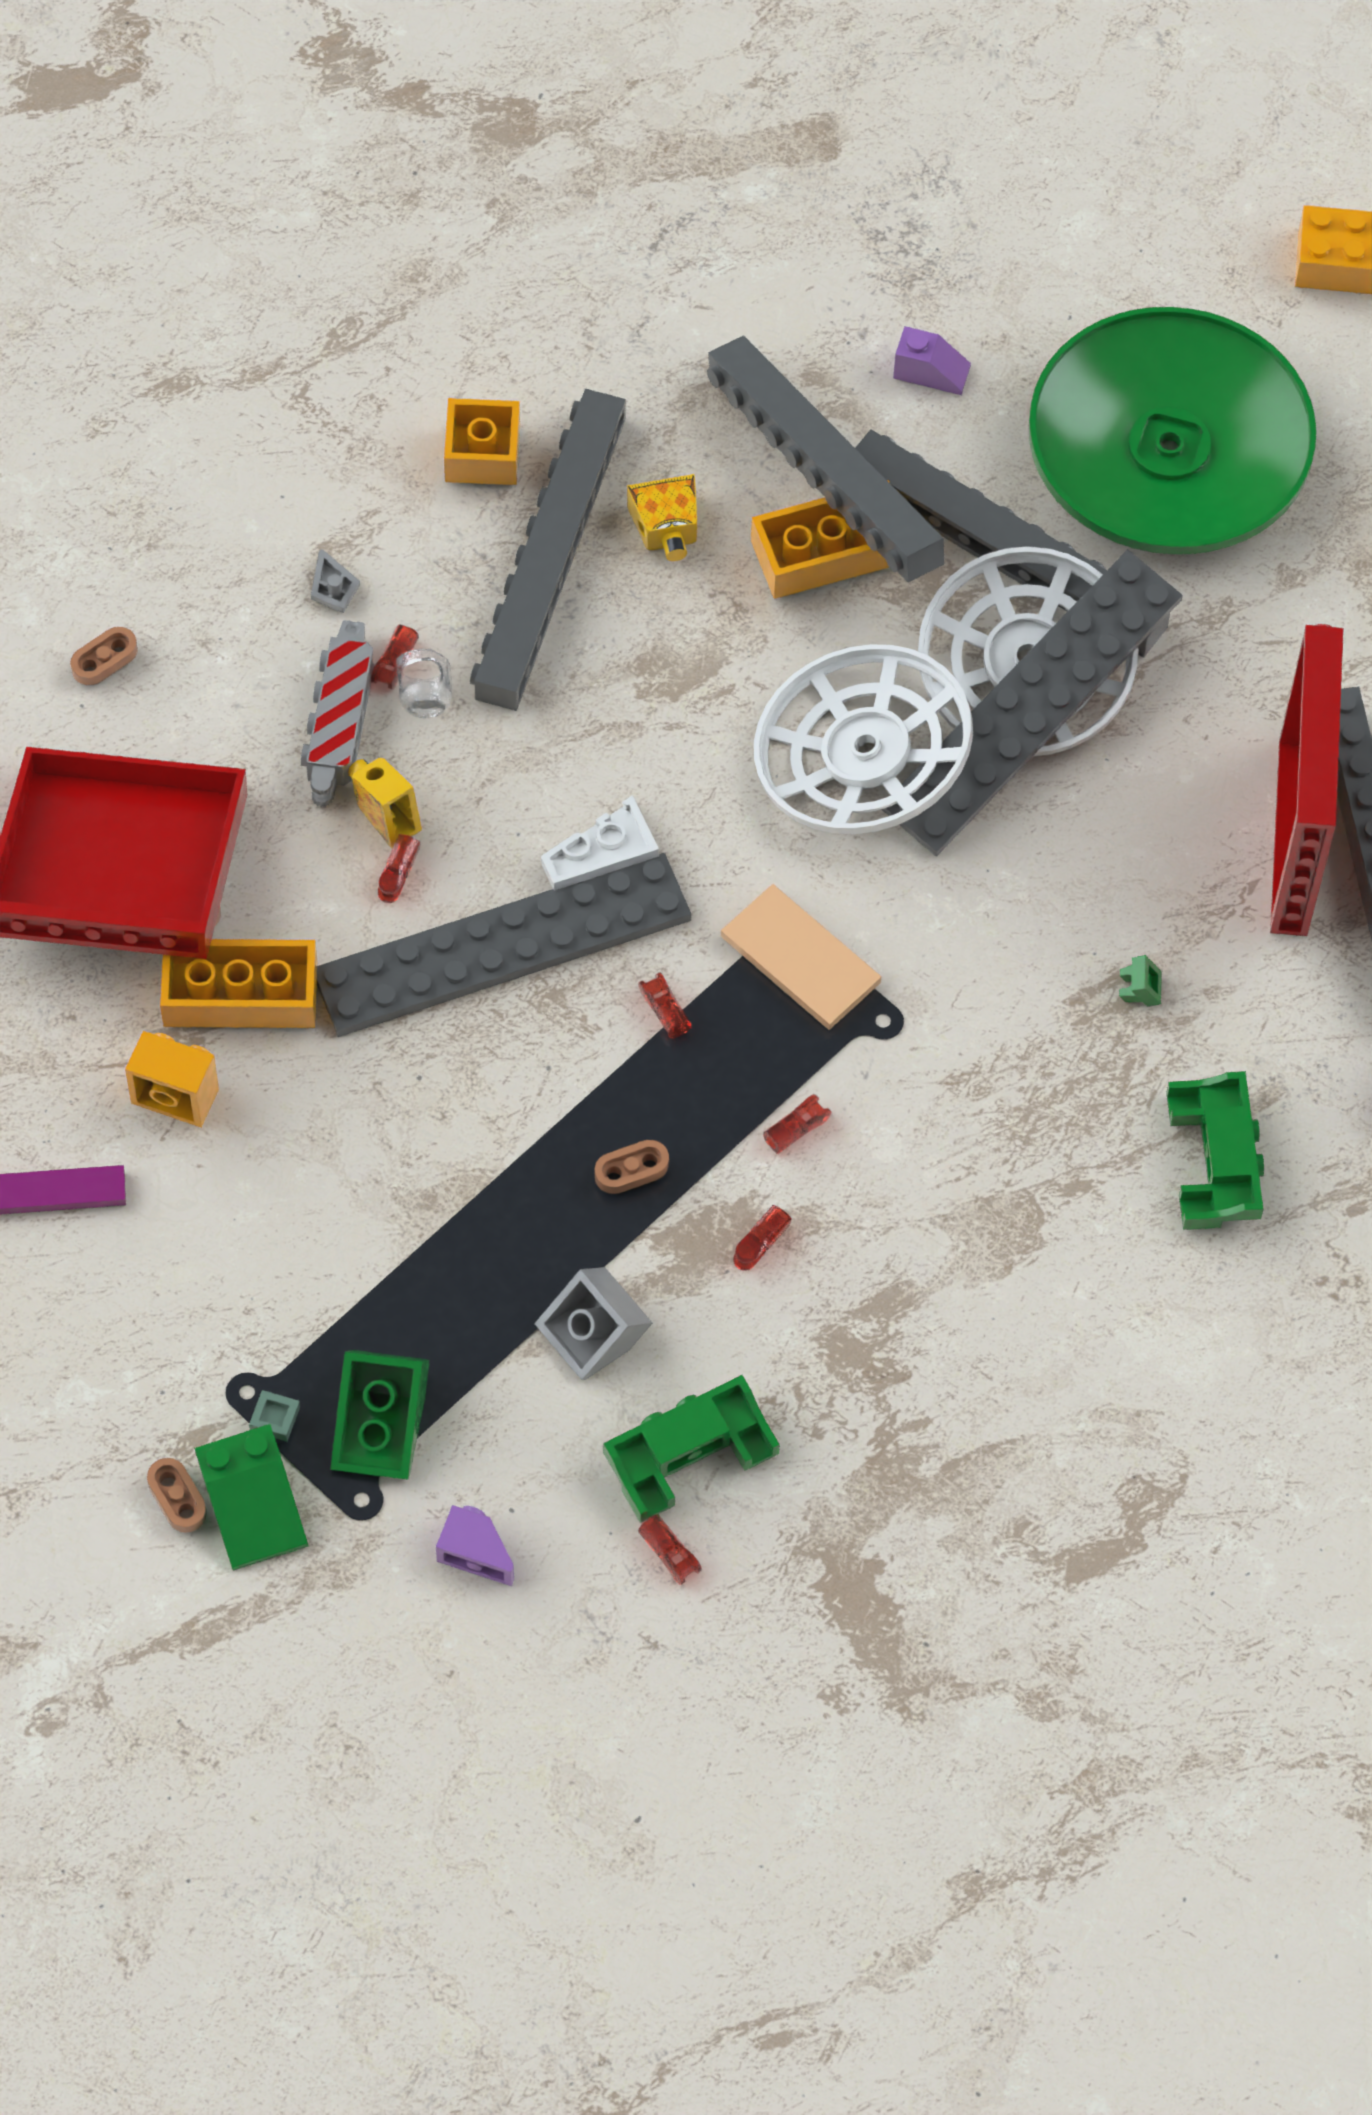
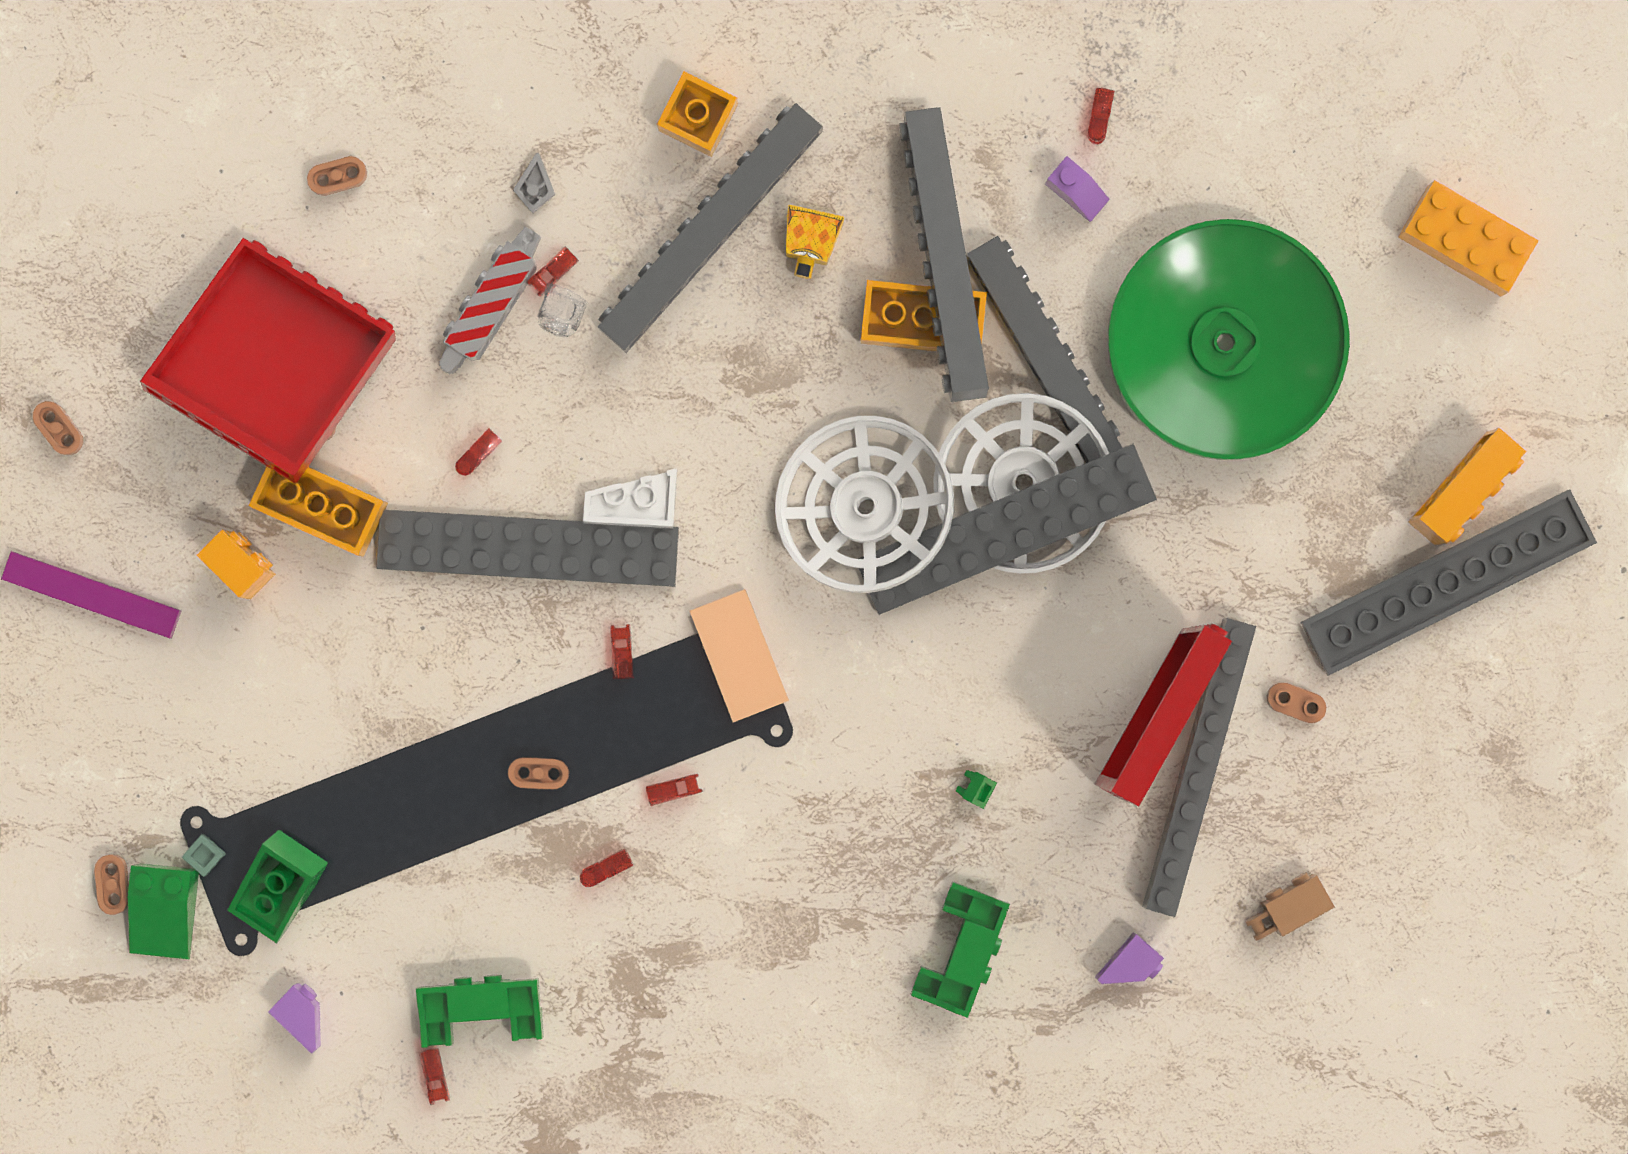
camera: 30 degrees right, 25 degrees up
(375, 789) = (489, 403): yellow torso -> none
(593, 1321) = (457, 883): light grey slope -> none
(918, 289) = (1100, 115): none -> clear red bar

